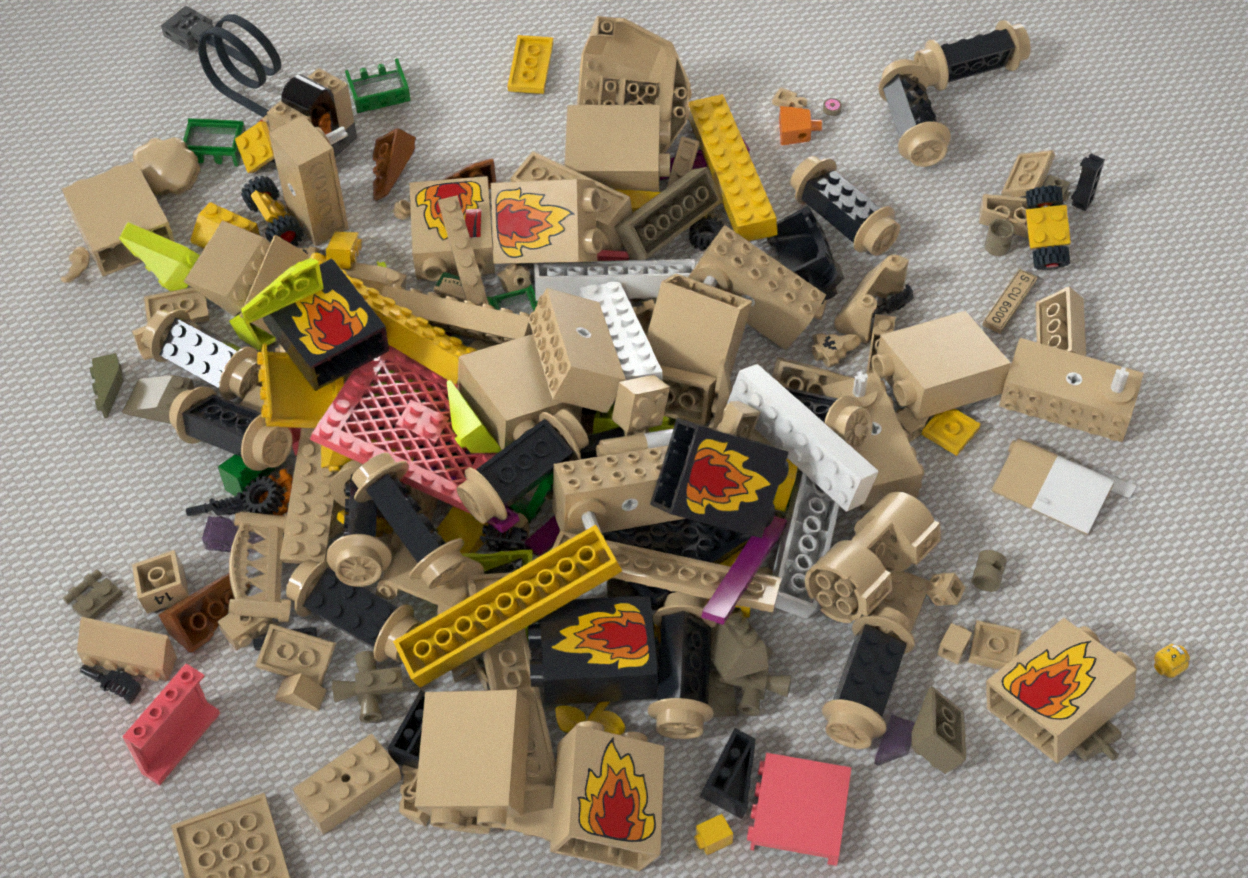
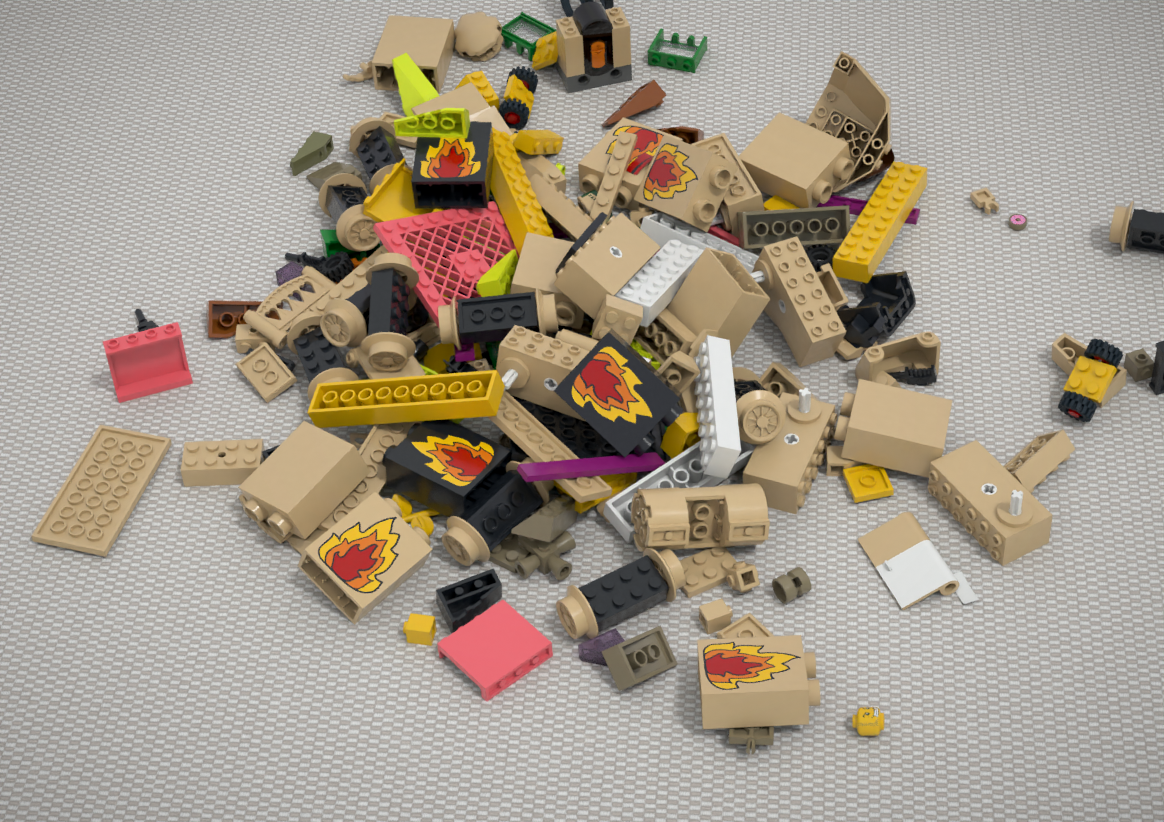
camera: 40 degrees right, 10 degrees down
(97, 600) = (185, 277): dark tan plate -> none
(125, 649) = (168, 307): tan slope -> none
(160, 581) = (227, 283): tan brick -> none
(301, 692) = (251, 398): tan slope -> none
(310, 177) = (546, 62): tan piece -> none
(369, 686) = (289, 414): dark tan brick -> none
(530, 64) = (804, 86): yellow plate -> none
(532, 341) = (588, 233): none -> black tile
(684, 159) = (855, 197): tan plate -> none
(796, 125) = (970, 220): orange torso -> none
(833, 347) = (834, 382): tan rock -> none
(844, 206) = (940, 288): brick -> none
(921, 136) = (1060, 266): brick -> none
(999, 237) = (1051, 373): dark tan wheel -> none
(1009, 301) = (1015, 423): tan tile -> none
(1028, 172) = (1135, 339): tan tile -> none

